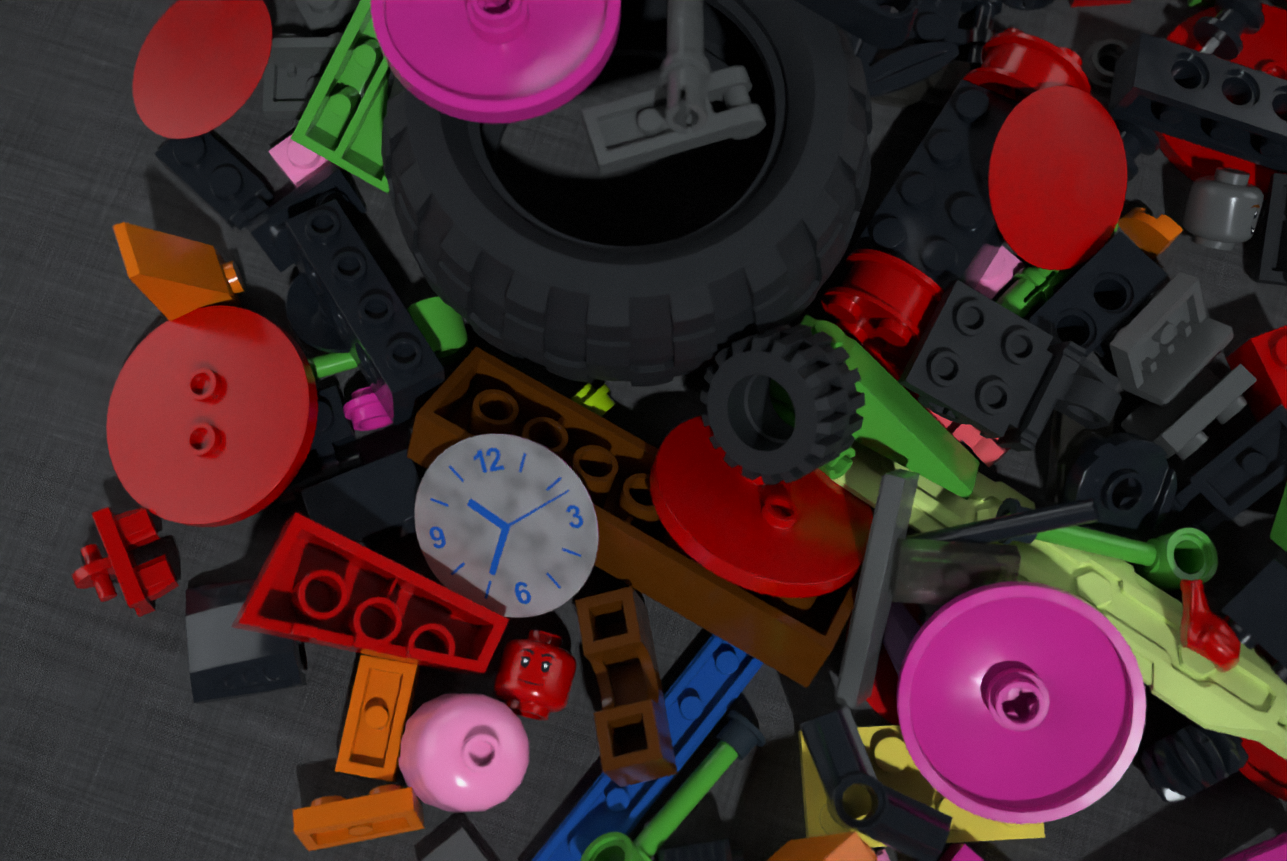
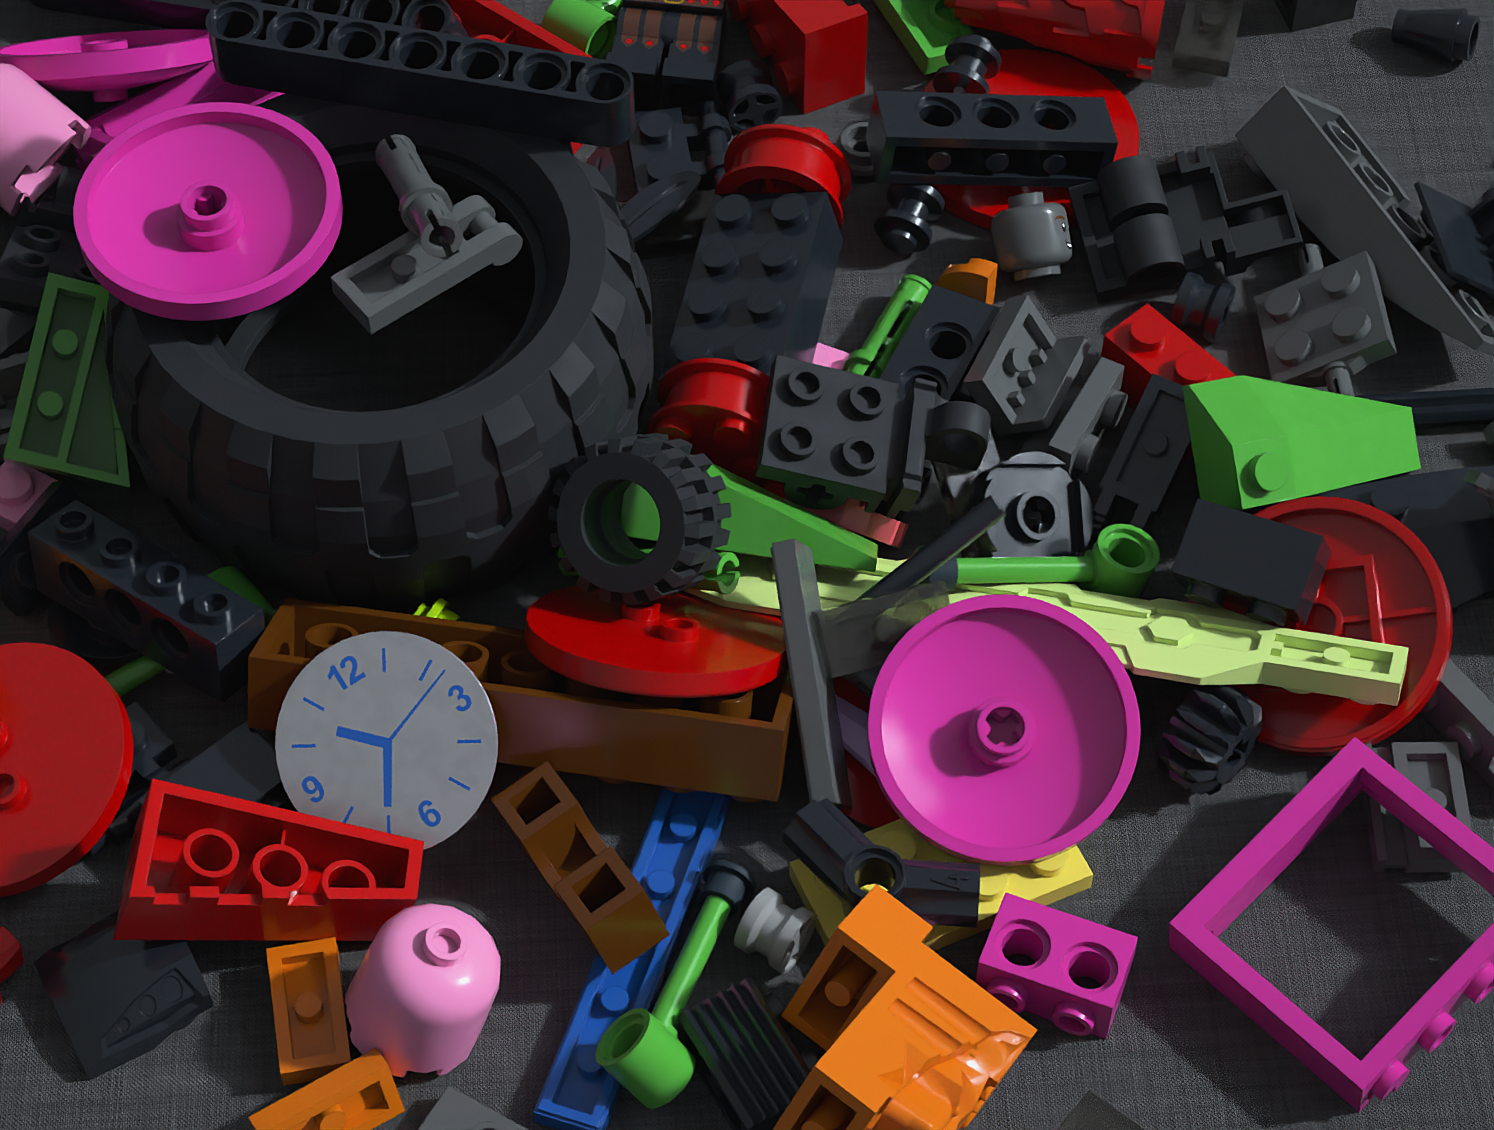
camera: 20 degrees left, 20 degrees down
(366, 411) = (185, 710): dark pink plate -> none
(535, 675) = (481, 888): red head -> none
(766, 791) = (775, 930): none -> light grey wheel
(1057, 177) = (847, 248): red sticker -> none
(1204, 630) = (1167, 597): red animal -> none

